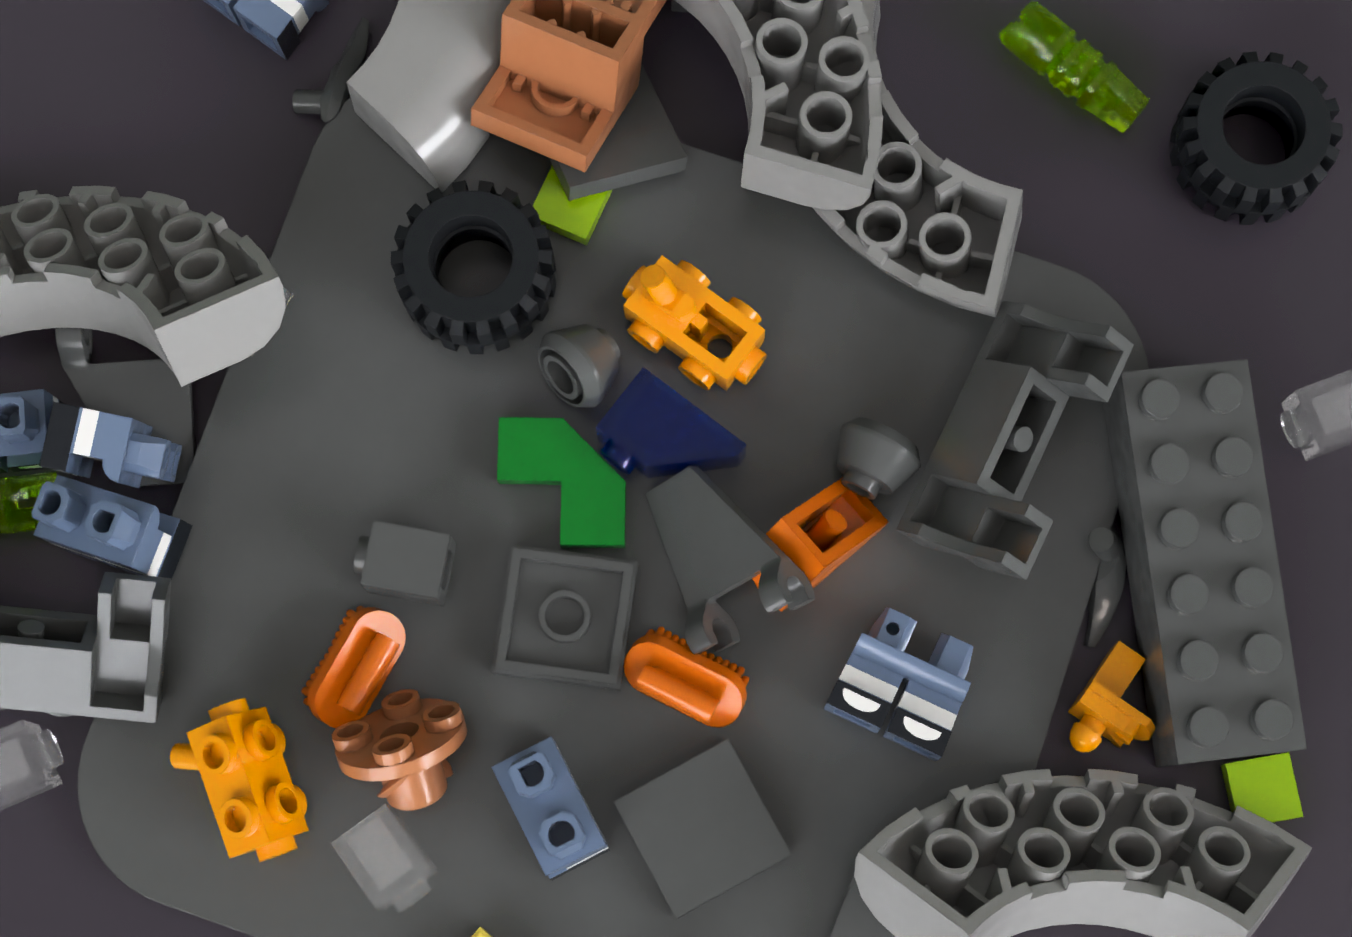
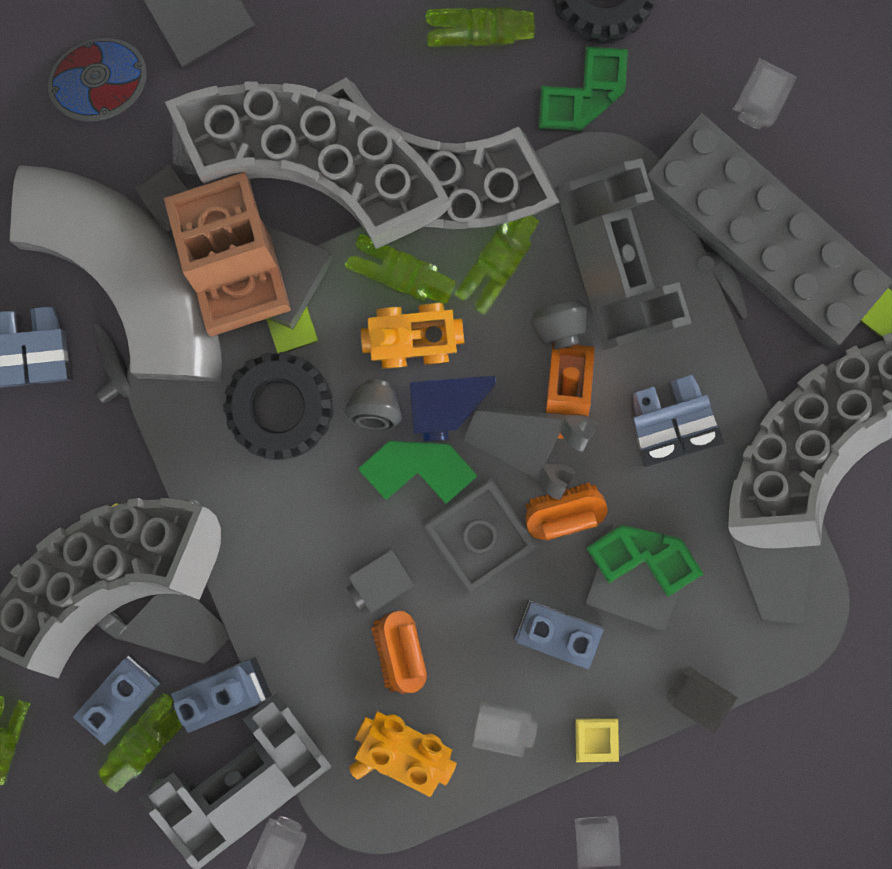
camera: 45 degrees left, 10 degrees up
(122, 444) = (182, 654): sand blue hips -> none
(403, 747) = (462, 670): nougat plate -> none
(746, 246) = (401, 271): none -> clear neon green hinge
(755, 825) = (630, 546): none -> green tile
(868, 328) = (498, 261): none -> clear neon green hinge
(1101, 706) = (776, 345): light orange piece -> none
(1104, 249) = (577, 107): none -> green tile

